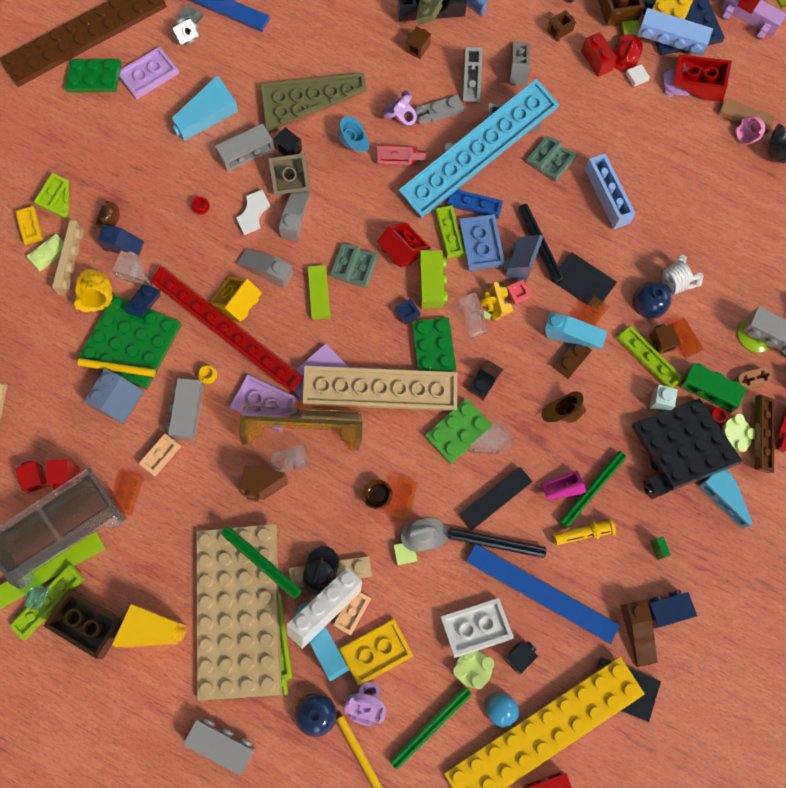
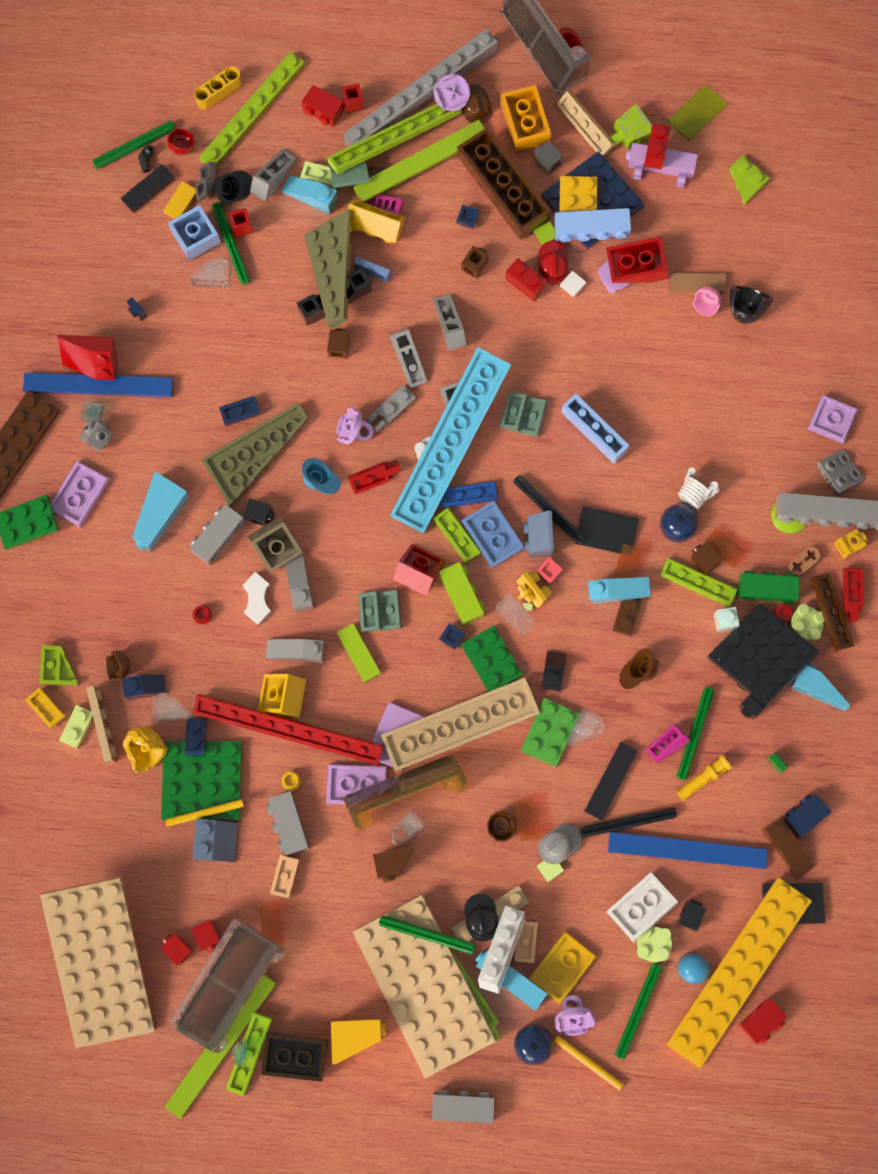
camera: 15 degrees left, 5 degrees up
(311, 61) = (239, 411): none -> dark blue plate

